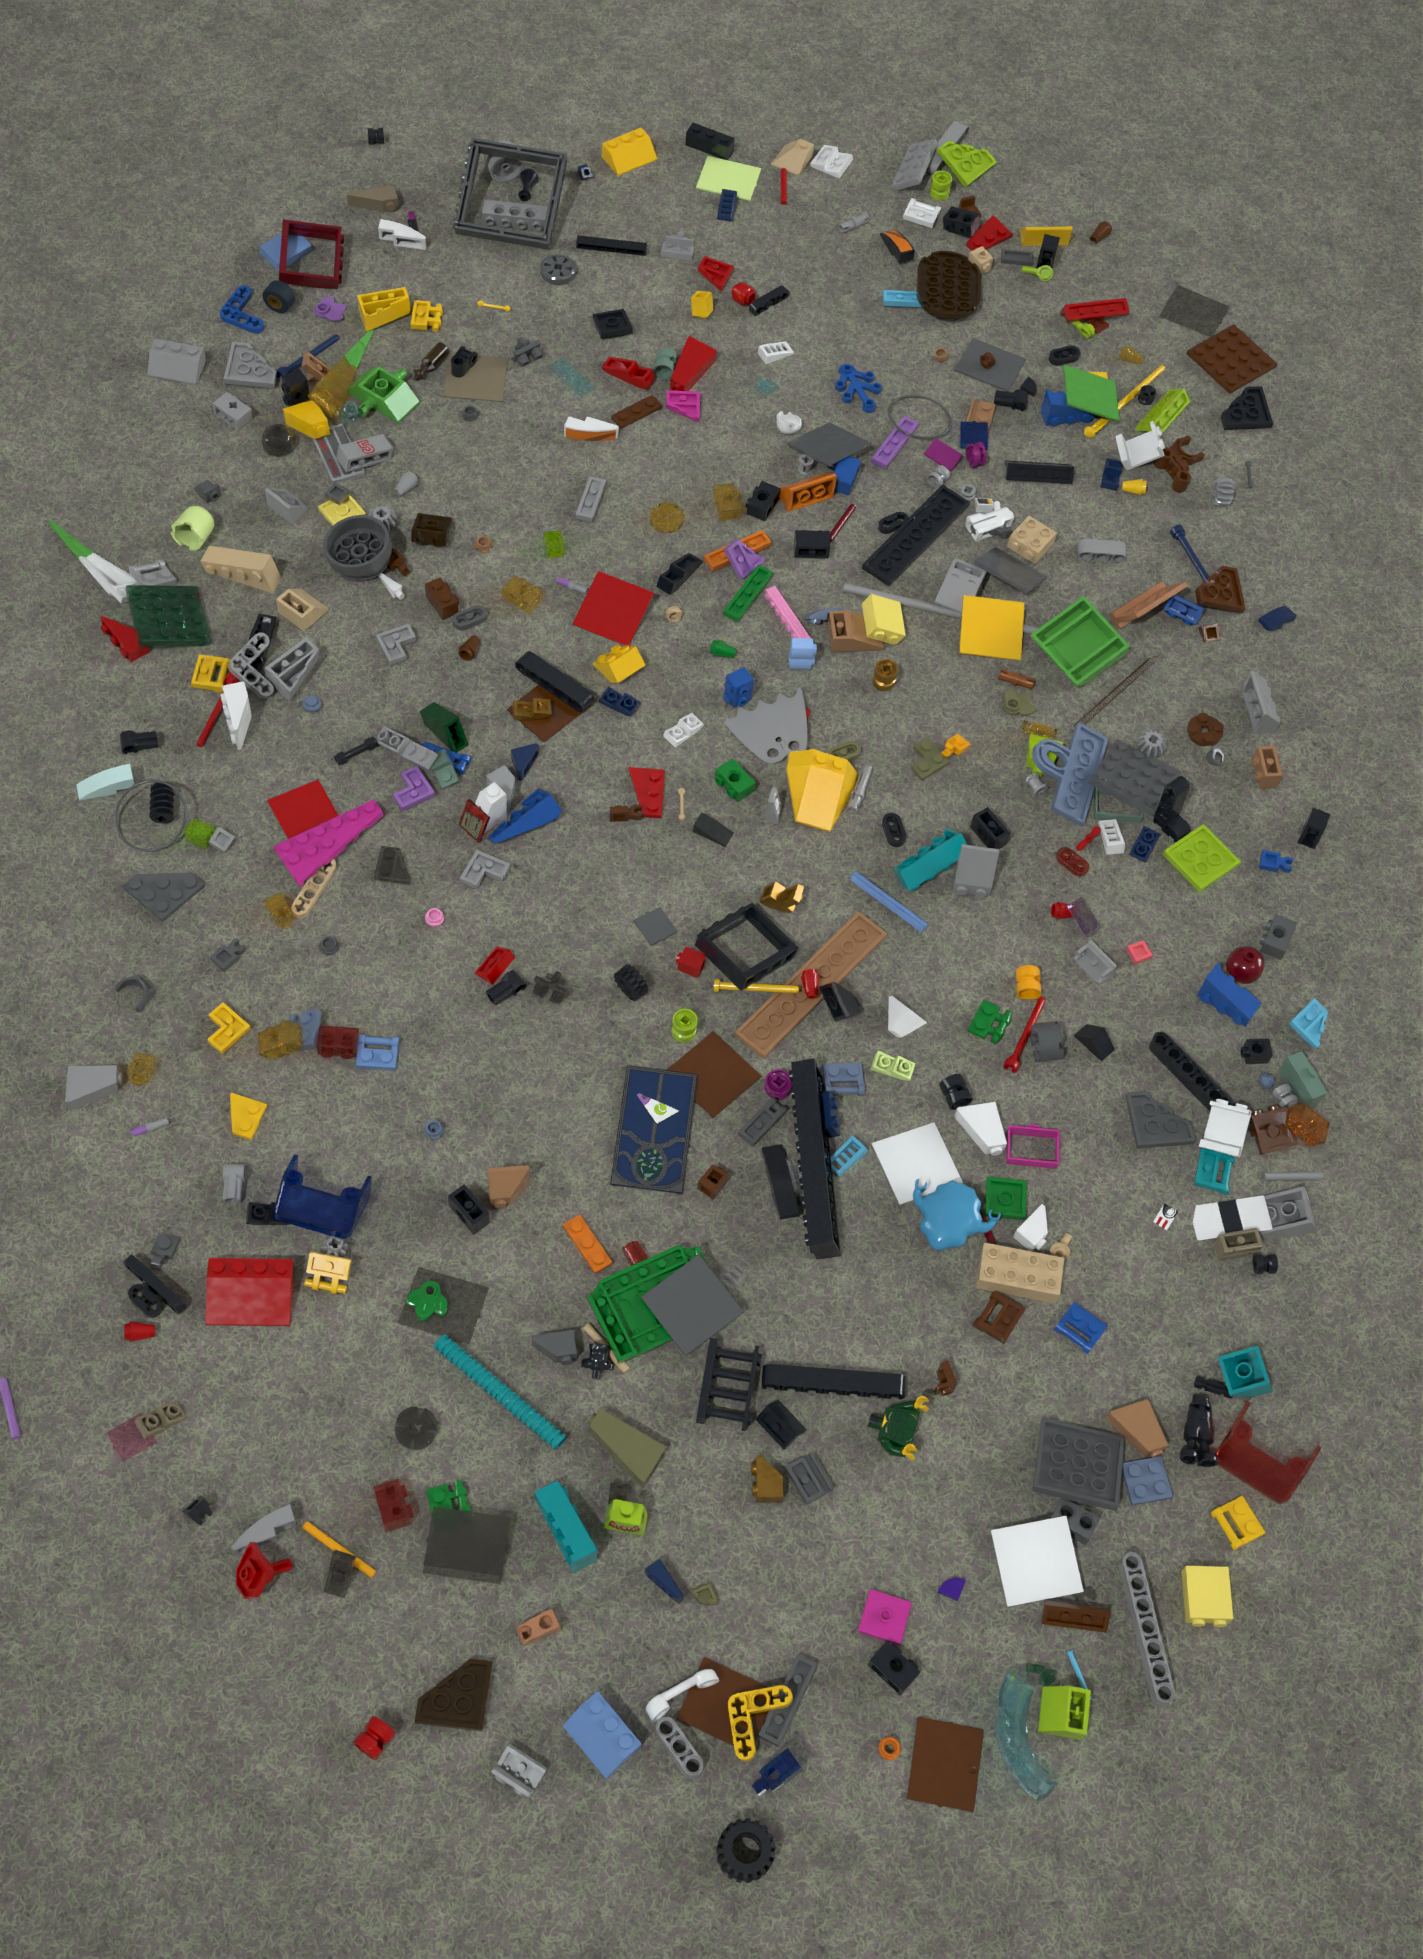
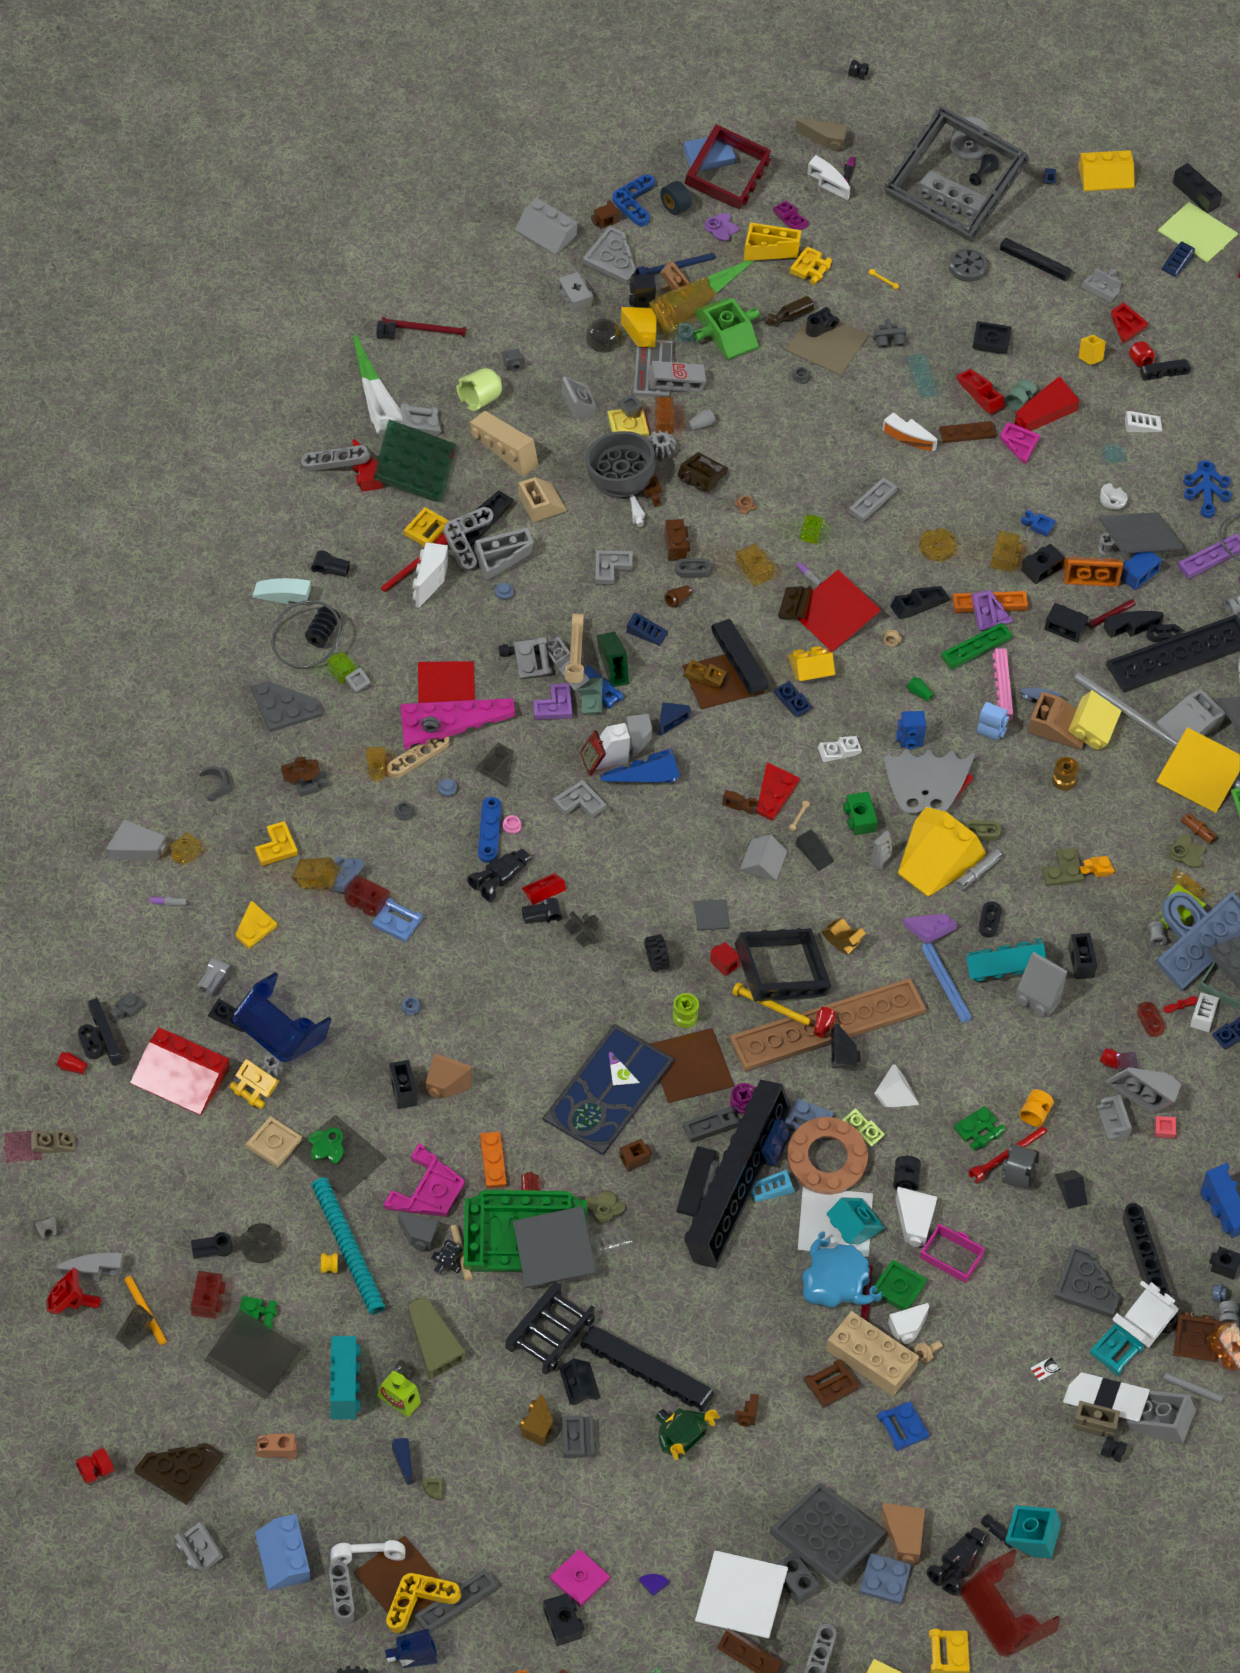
camera: 30 degrees right, 5 degrees down
(81, 504) = (390, 329): none -> black wheel
(91, 636) = (335, 454): none -> light grey beam
(111, 490) = (428, 327): none -> dark red bar
(212, 946) = (300, 769): none -> reddish brown plate
(223, 334) = (605, 215): none -> reddish brown brick
(314, 854) = (430, 724): none -> dark grey plate
(356, 907) = (447, 787): none -> sand blue plate
(366, 758) = (526, 658): none -> light grey plate
(368, 1455) = (210, 1246): none -> black piece
(371, 490) = (664, 414): none -> clear orange brick
(375, 1321) = (274, 1142): none -> tan plate
(382, 278) = (789, 215): none -> magenta slope
(416, 930) = (489, 829): none -> blue plate
(422, 752) = (574, 670): none -> tan piece
(447, 964) = (501, 873): none -> black piece
(453, 683) = (643, 634): none -> dark blue slope
(491, 1417) = (329, 1263): none -> yellow wheel
(552, 1299) = (434, 1193): none -> dark pink wing
(575, 614) = (795, 602): none -> dark brown plate
(673, 855) = (764, 858): none -> light grey slope
(710, 1239) = (604, 1206): none -> olive plate
(741, 467) = (1039, 524): none -> blue plate
(848, 857) = (931, 926): none -> medium lavender wing
(863, 523) = (1132, 622): none -> black slope
(866, 1128) = (817, 1180): none -> nougat plate
(936, 1155) = (854, 1220): none -> teal slope
(1113, 925) = (1146, 1088): none -> light grey slope

